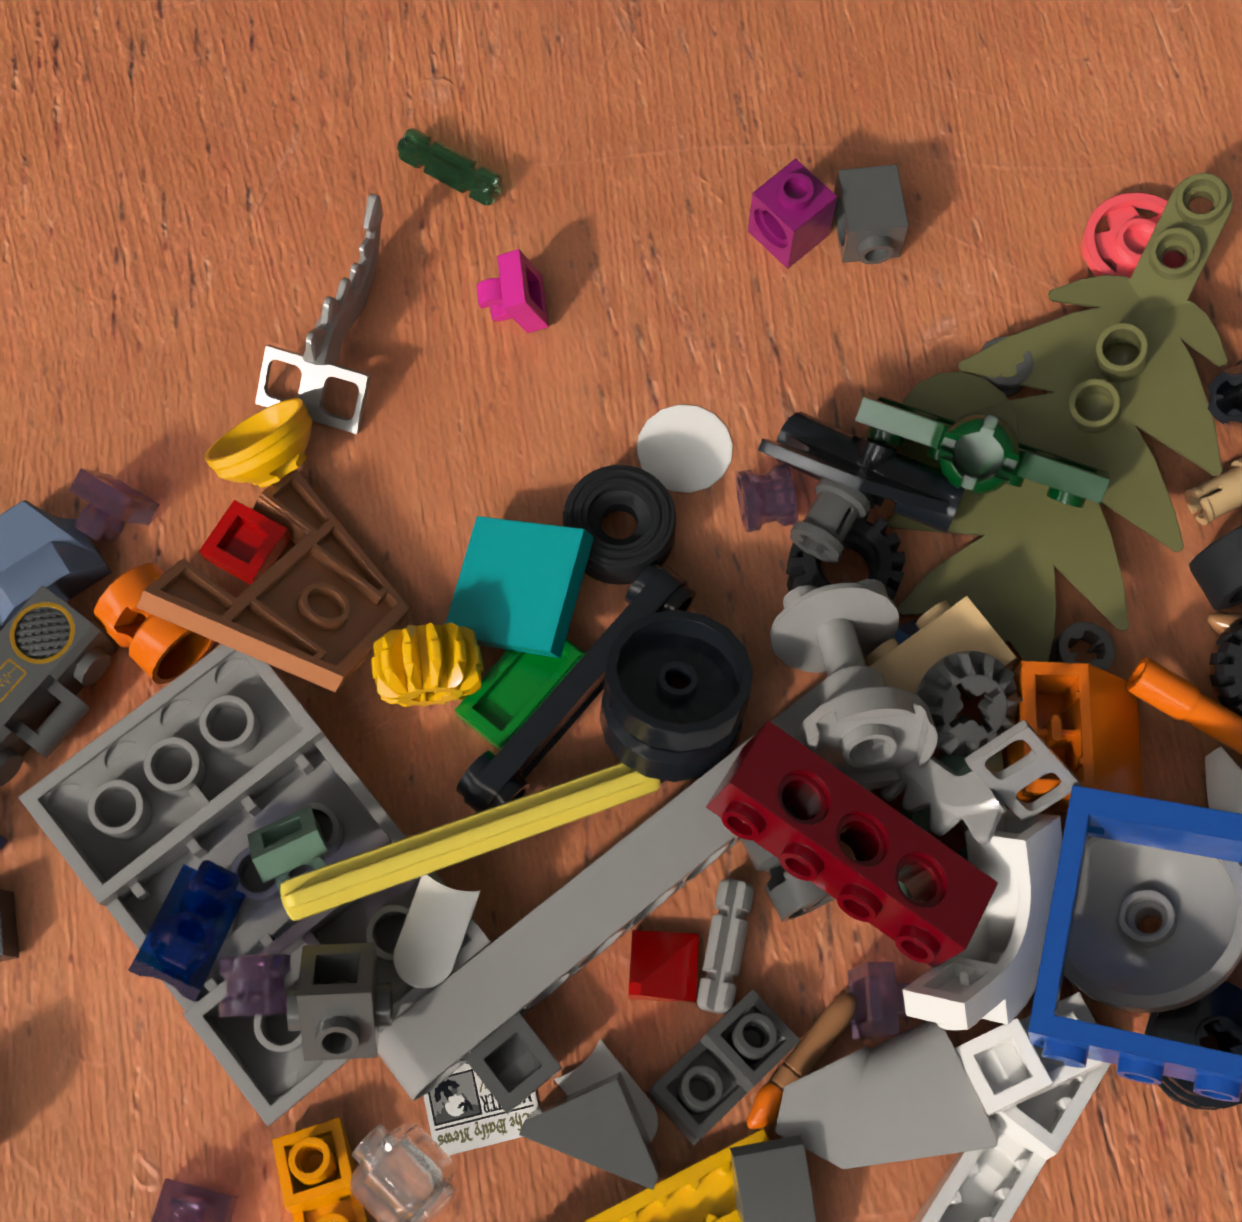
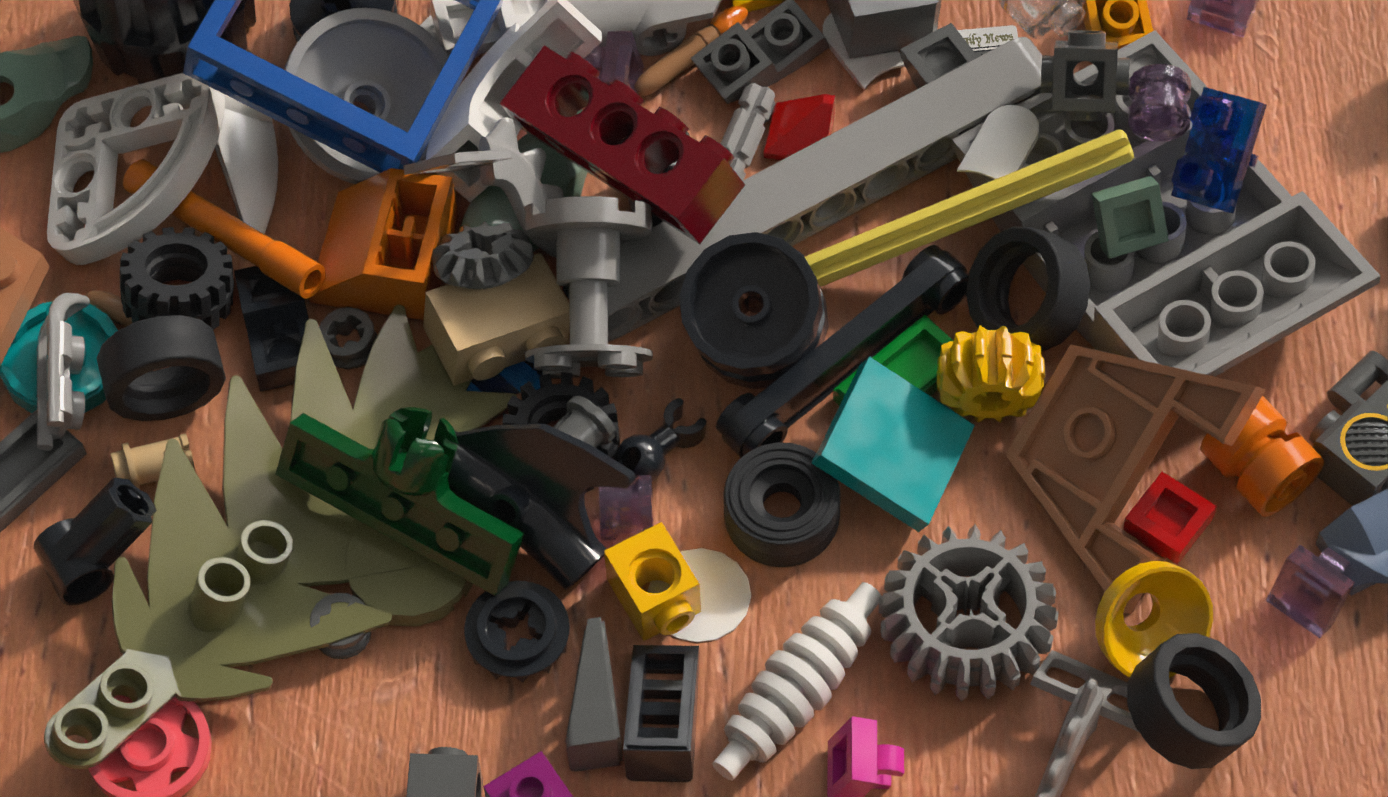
camera: 170 degrees left, 10 degrees down
(188, 356) = (1165, 722): none -> black tyre
(369, 788) = (1065, 292): none -> black tyre
(447, 402) = (937, 577): none -> light grey gear
(579, 361) = (797, 681): none -> white piece
(696, 282) = (661, 752): none -> black slope
(730, 450) = (650, 558): none -> yellow brick
(754, 306) = (593, 723): none -> dark grey slope
(756, 566) = (647, 453): none -> black arm
(824, 360) = (546, 622): none -> black gear
(1156, 635) = (273, 324): none -> black slope

